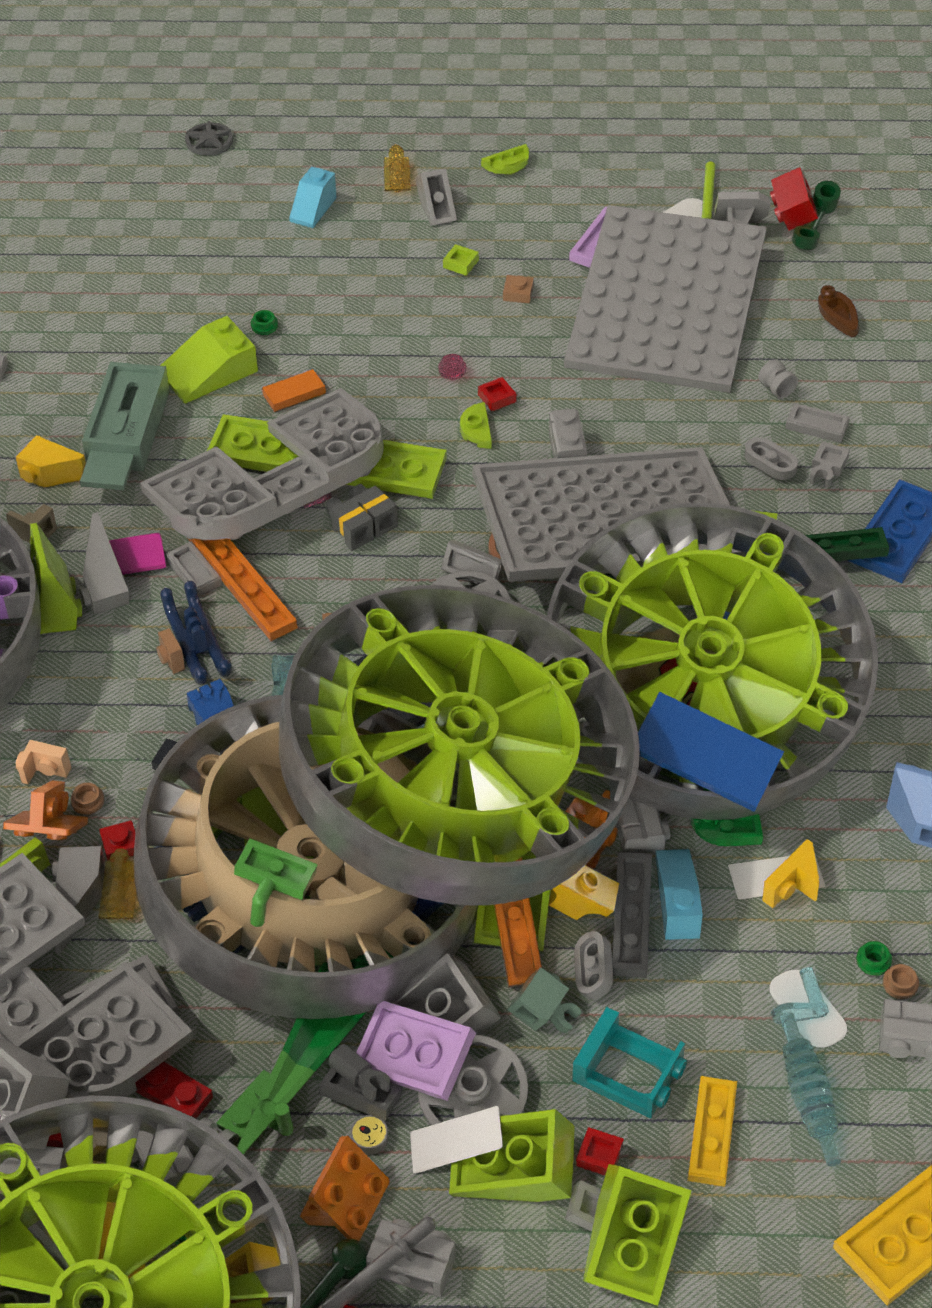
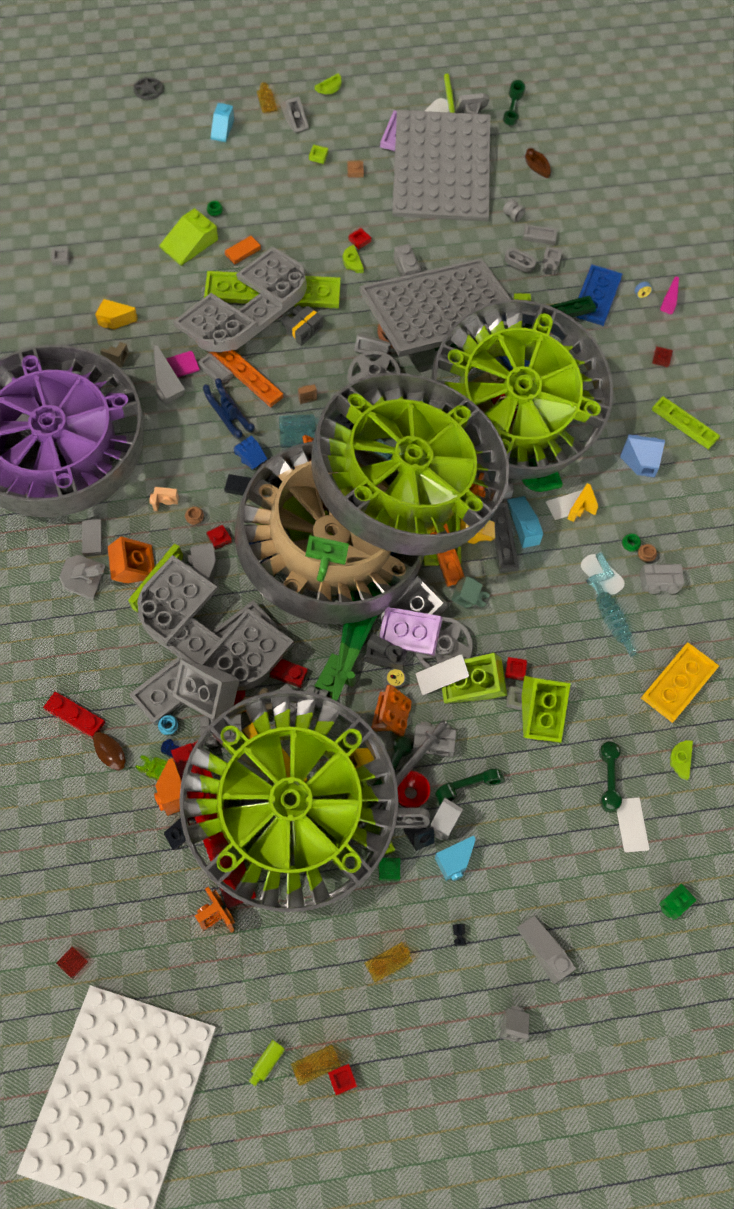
camera: 15 degrees left, 15 degrees up
(47, 814) = (177, 531): orange bracket -> none
(56, 588) = (148, 402): lime slope -> none
(118, 888) = (226, 563): clear yellow hinge -> none
(123, 424) = (151, 284): sand green piece -> none
(170, 651) = (217, 421): medium nougat plate -> none
(452, 366) = (330, 224): clear pink plate -> none
(593, 965) = (490, 570): light grey plate -> none
(609, 1033) = (538, 614): teal panel -> none
(707, 751) = (535, 444): blue tile -> none
(712, 1131) = (569, 648): yellow tile -> none
(793, 199) = (500, 94): red brick -> none

